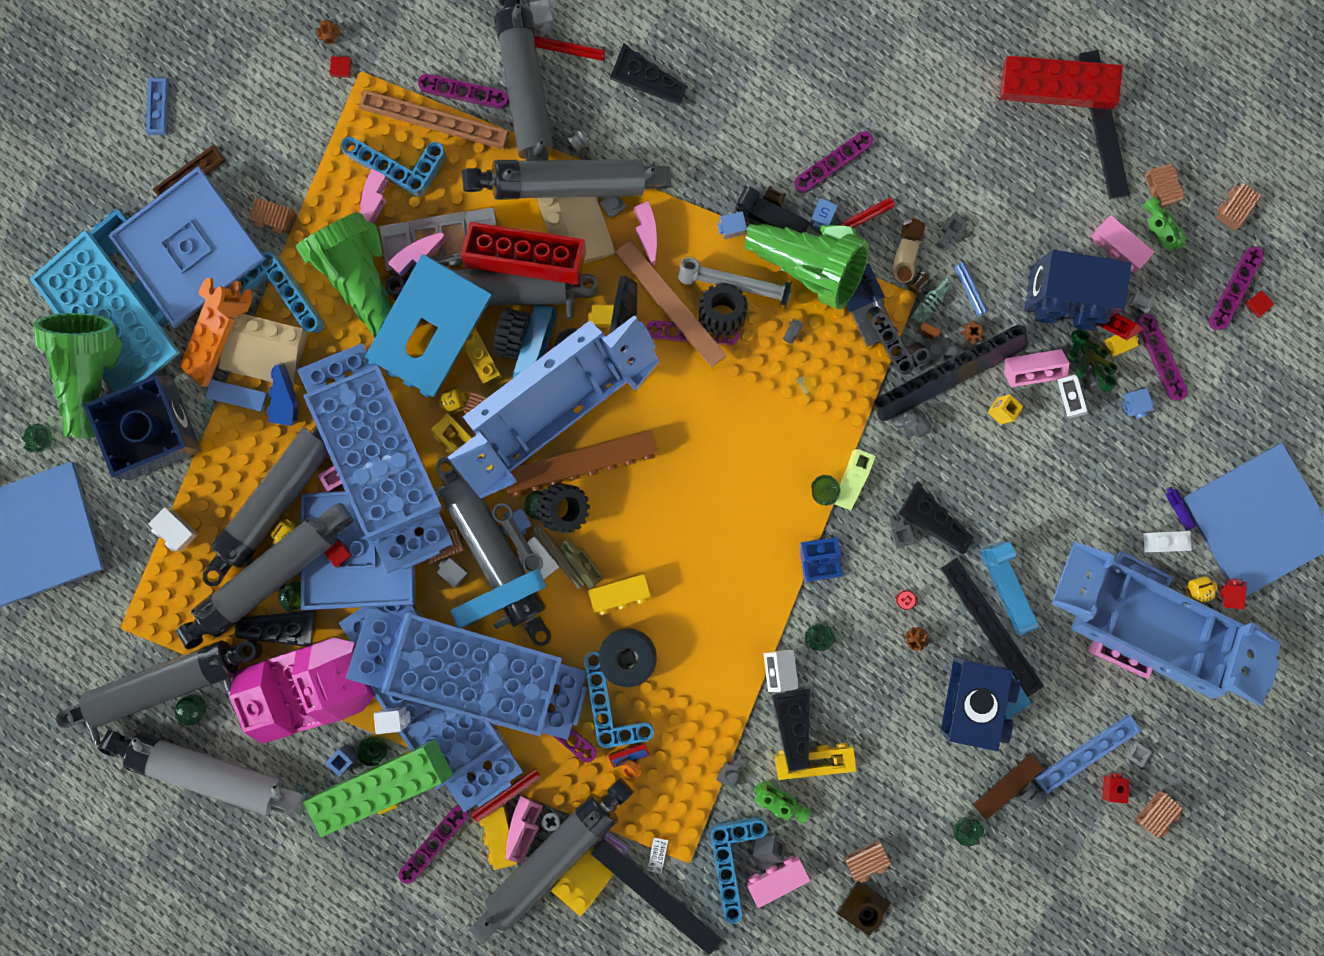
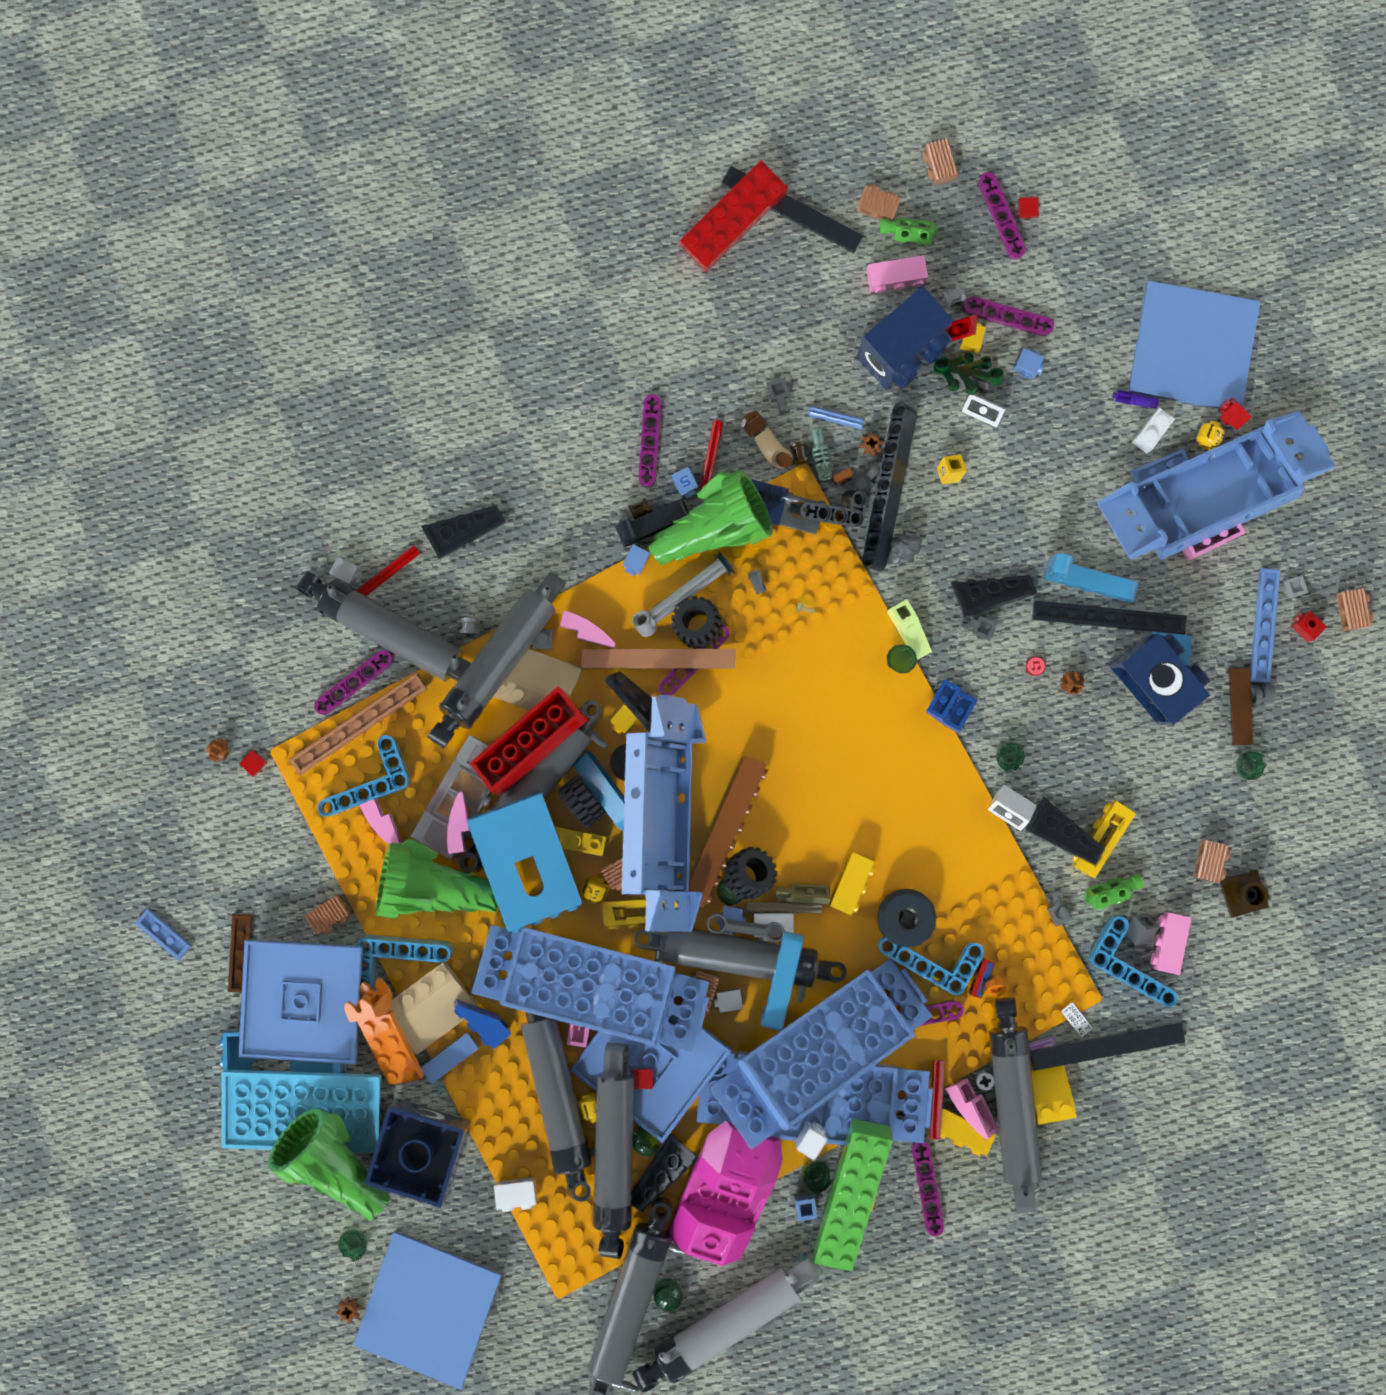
camera: 45 degrees left, 0 degrees up
(1036, 368) = (939, 419): bright pink brick -> none

